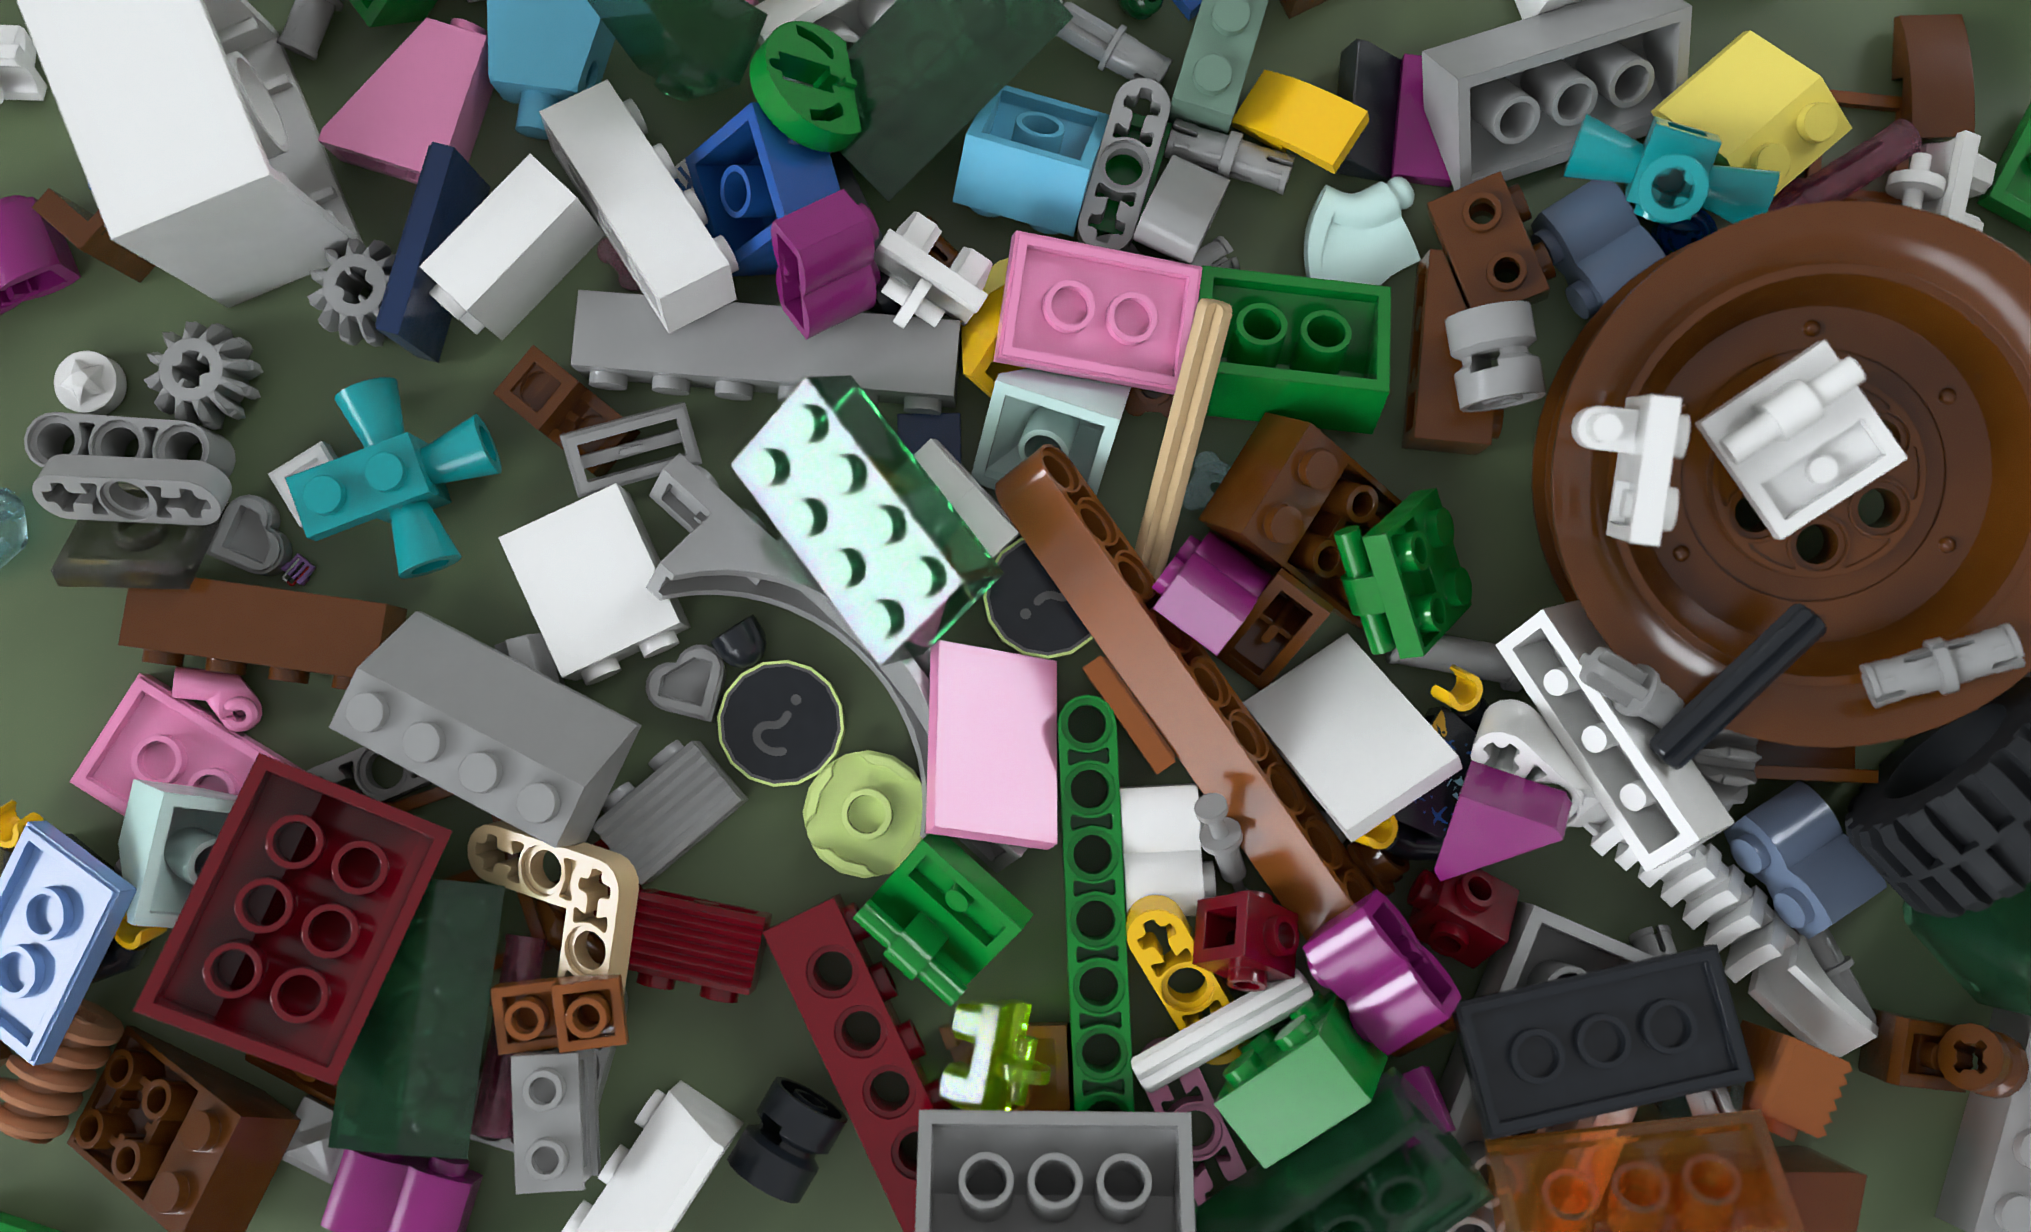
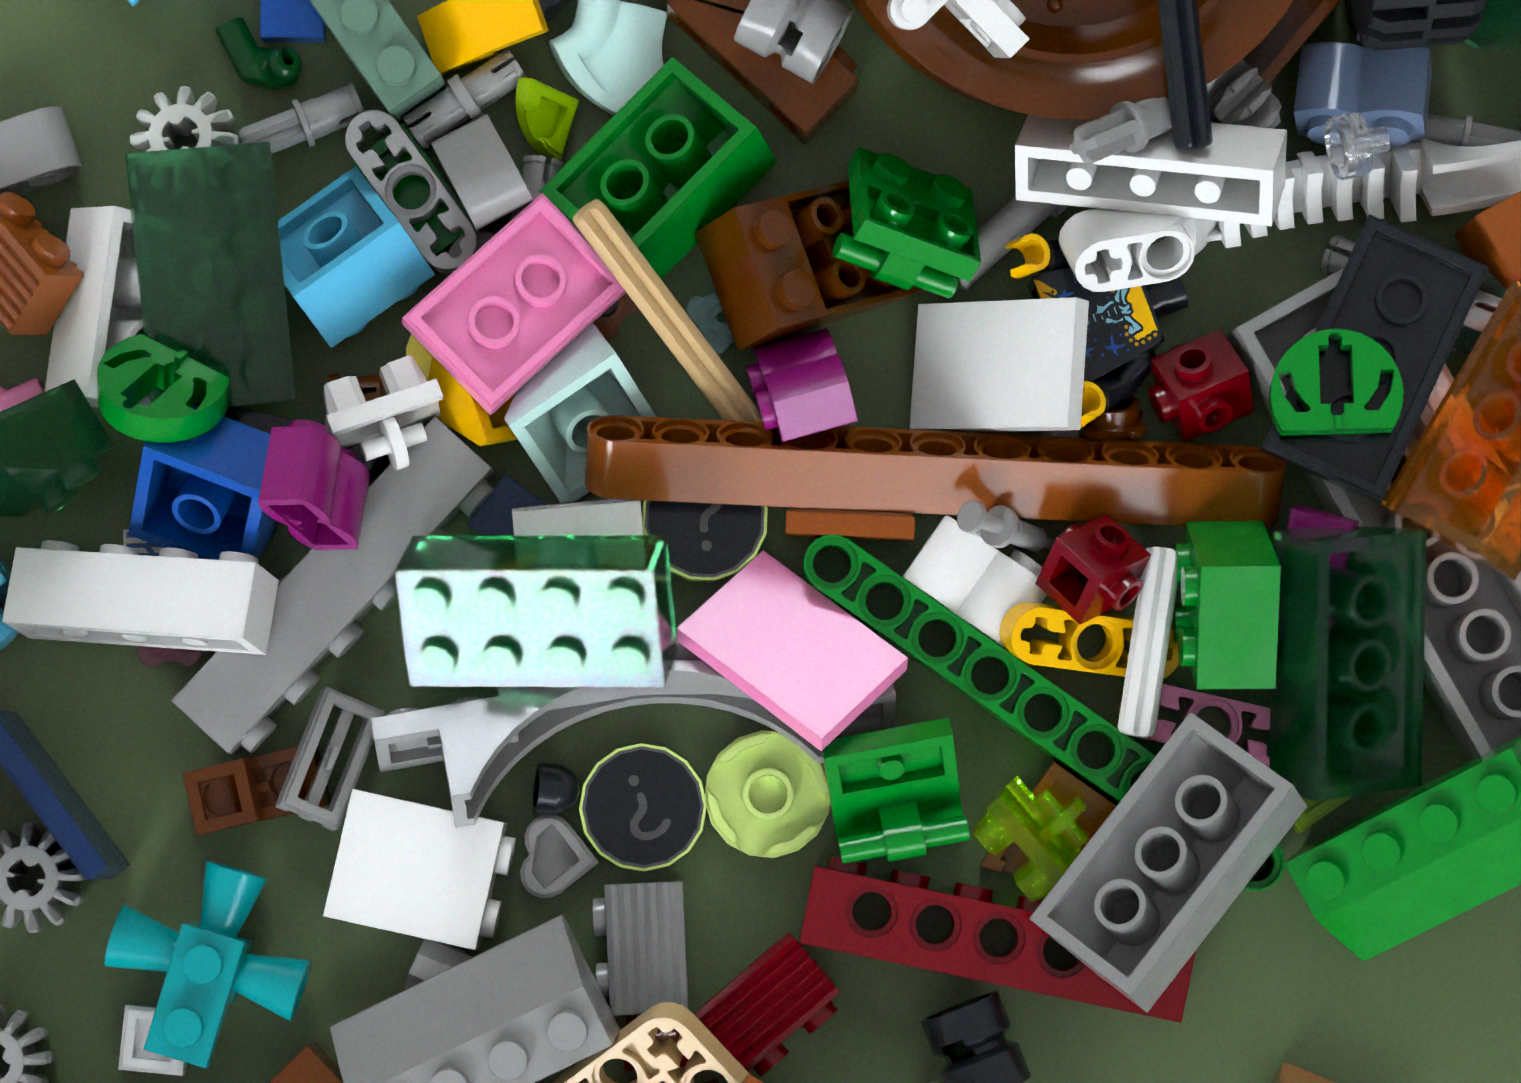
camera: 55 degrees left, 0 degrees up
(511, 250) = (98, 729): white brick -> none
(1264, 226) = (544, 116): none -> lime tile
(1274, 629) = (872, 359): reddish brown slope -> none
(1381, 973) = (1196, 484): magenta brick -> none
(1499, 819) = (1146, 305): magenta slope -> none
(1593, 1041) = (1367, 363): none -> green piece
(1761, 886) = (1352, 145): none -> clear tile

